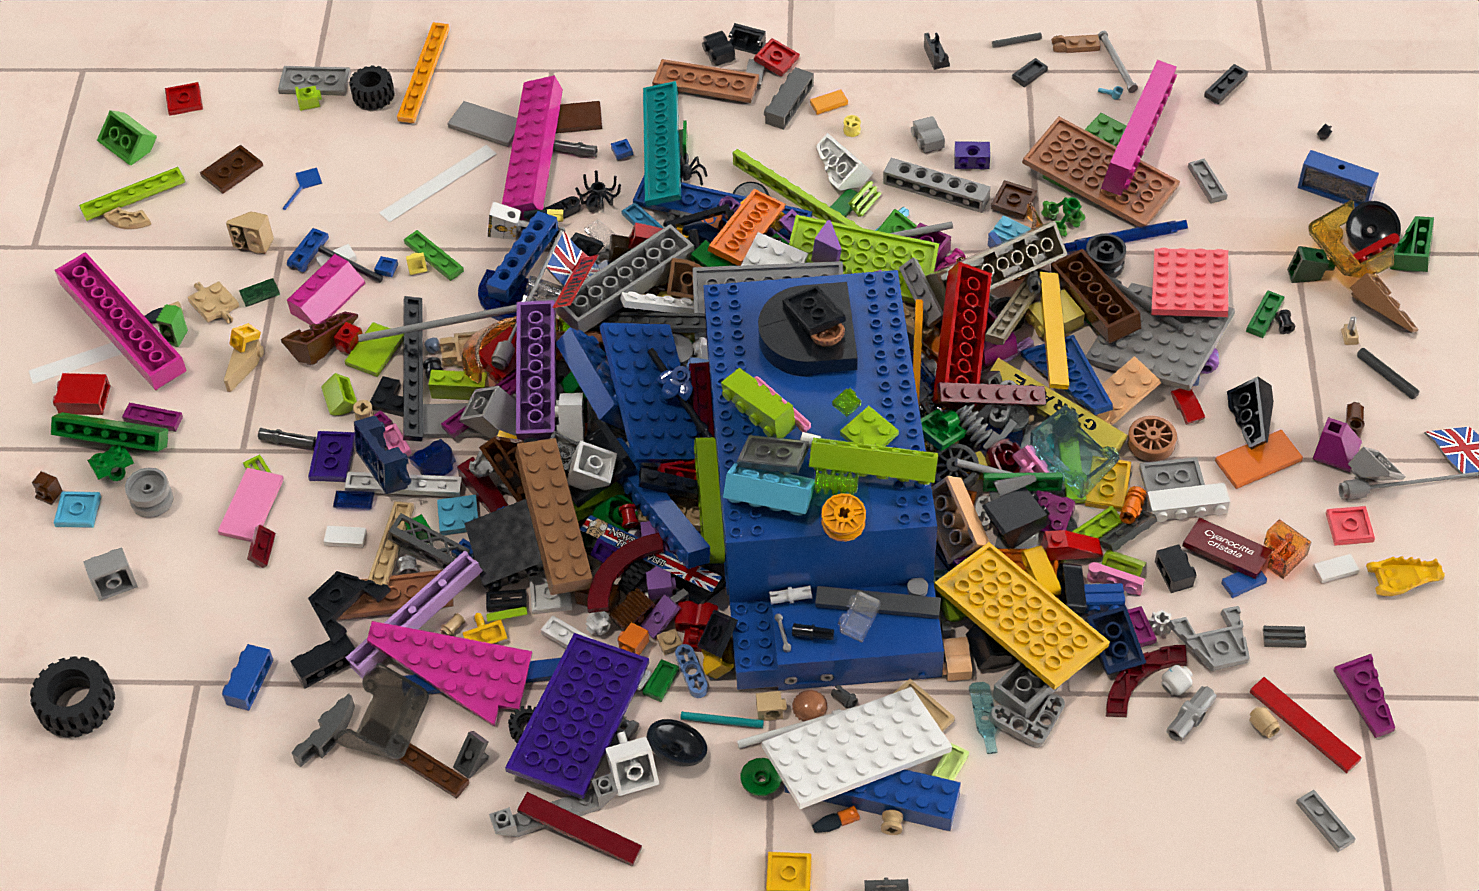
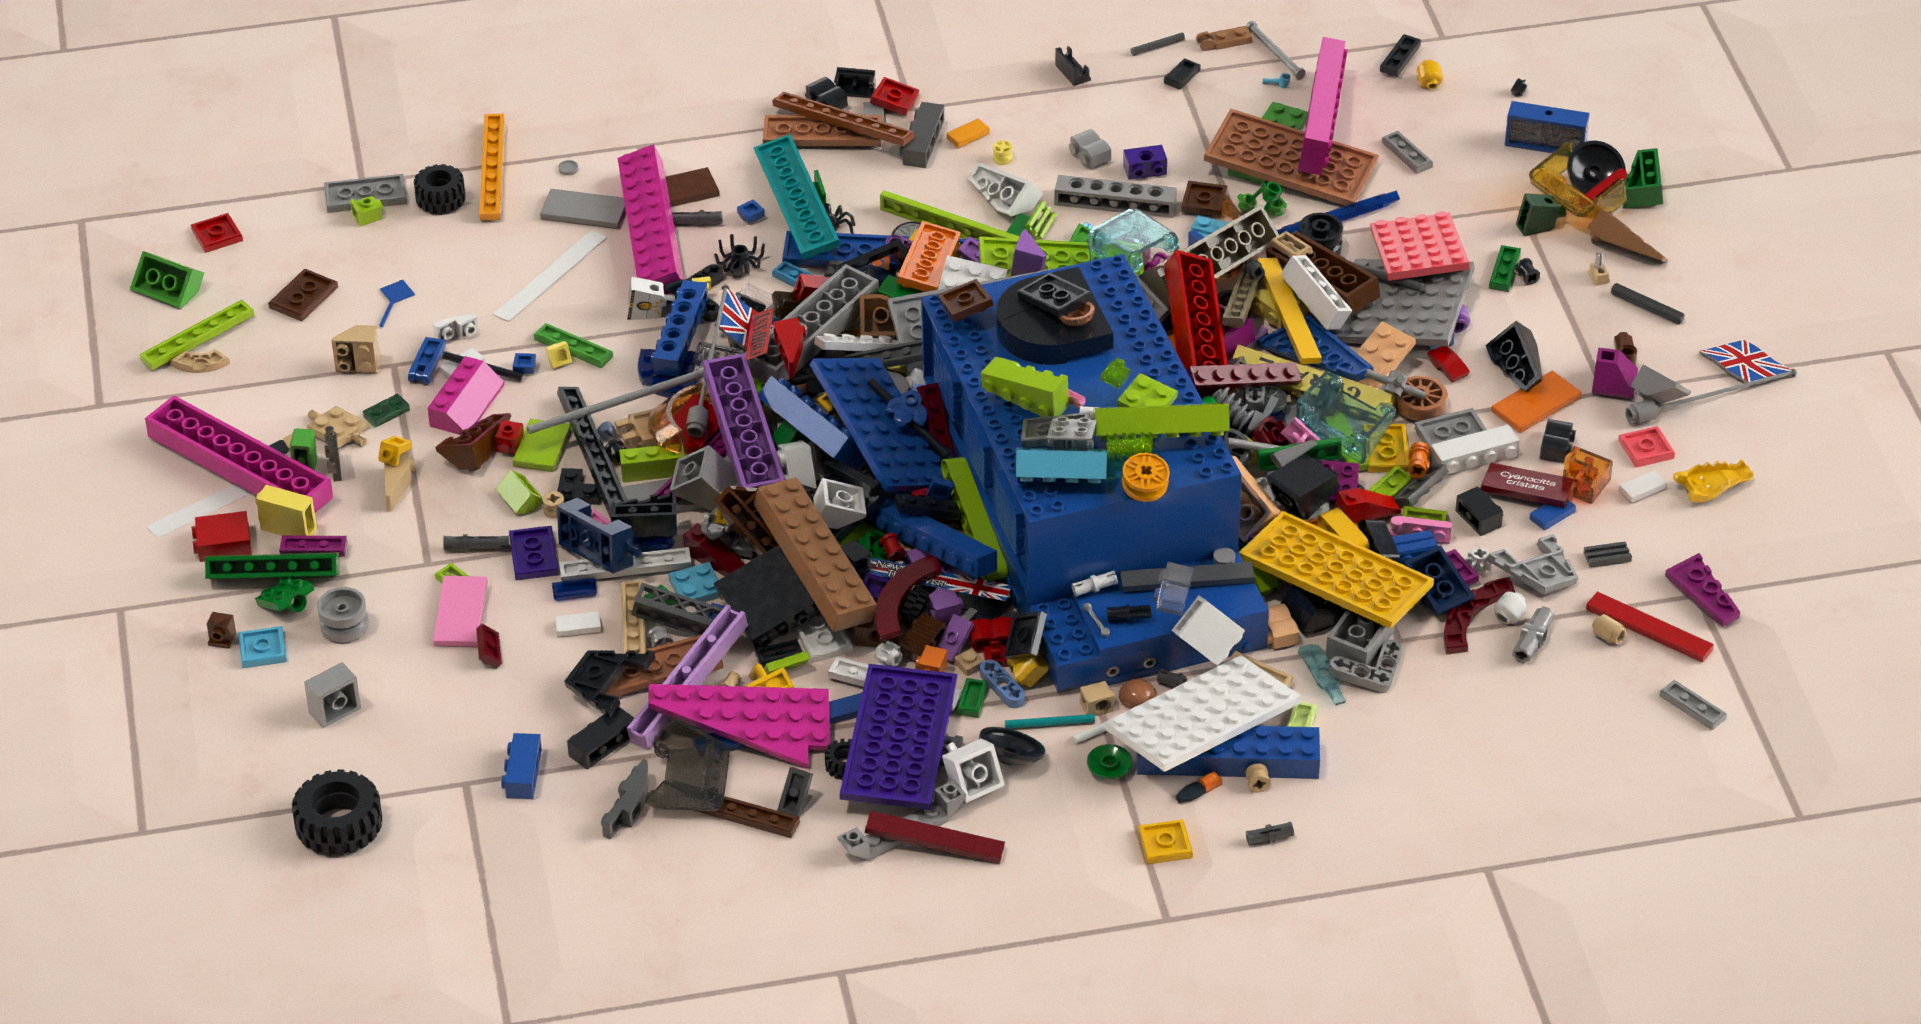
camera: 15 degrees left, 10 degrees down
(137, 382) = (285, 512): none -> light yellow brick
(195, 330) = (332, 453): none -> clear smoke plate
(345, 221) = (459, 326): none -> white slope
(430, 445) = (648, 517): none -> black wedge
(486, 82) = (568, 167): none -> light grey piece
(589, 524) = (858, 556): none -> black brick
(596, 298) = (789, 340): none -> red slope
(685, 466) = (940, 488): none -> blue plate
(724, 74) = (843, 118): none -> dark orange tile
(735, 299) = (965, 300): none -> reddish brown plate
(783, 461) = (1071, 429): none -> light grey hinge
(881, 664) = (1208, 630): none -> white brick
(919, 238) = (1130, 235): none -> clear light blue windscreen
(1078, 274) = (1288, 247): none -> tan tile
(1082, 317) = (1316, 292): none -> white brick
(1129, 424) = (1395, 383): none -> light grey bar
(1247, 107) = (1429, 74): none -> yellow head
(1266, 505) = (1557, 440): none -> black brick

